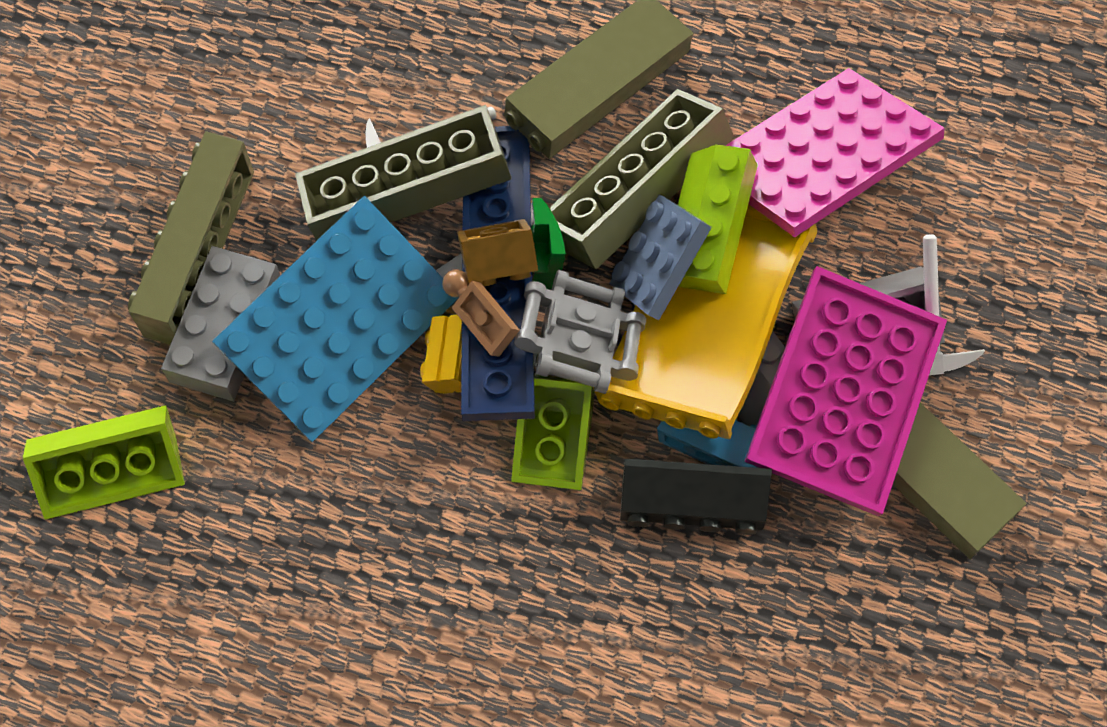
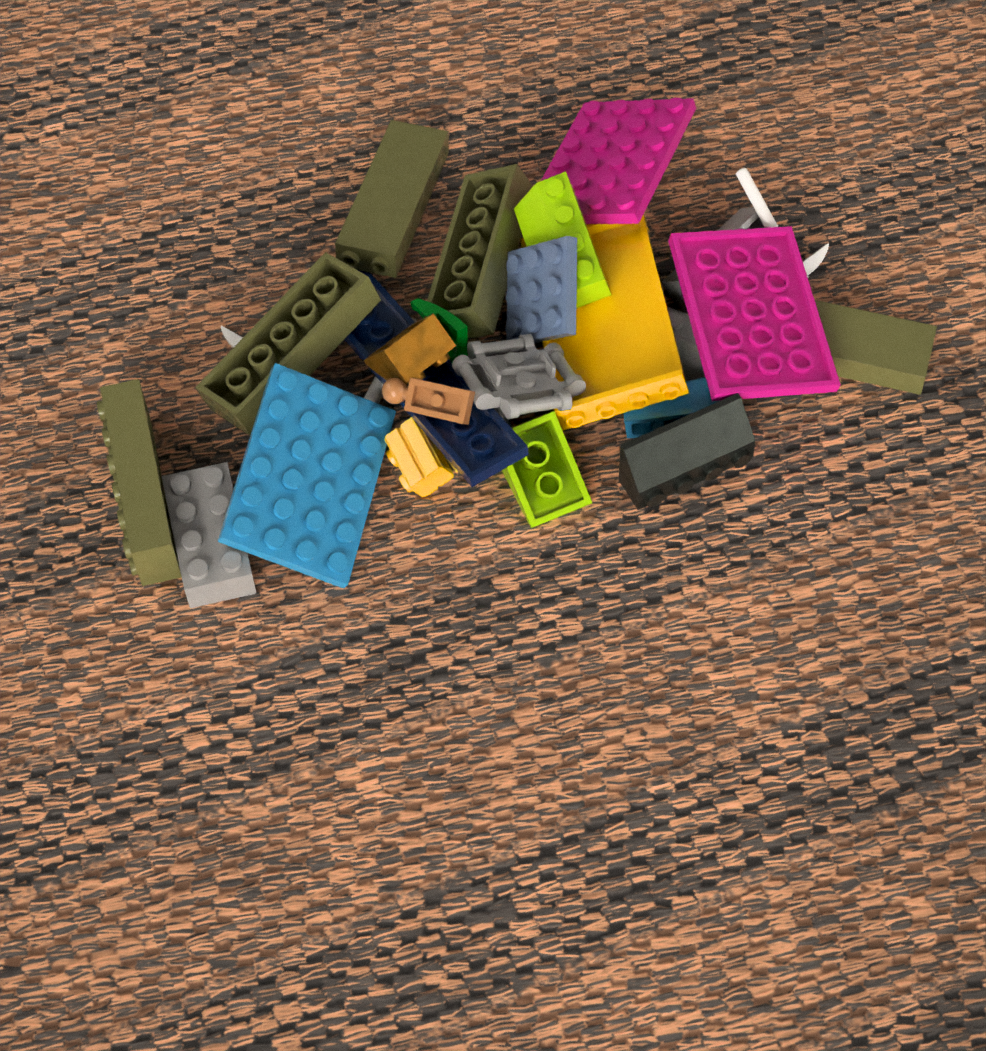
camera: 30 degrees left, 10 degrees down
(104, 462) = (180, 693): lime slope -> none

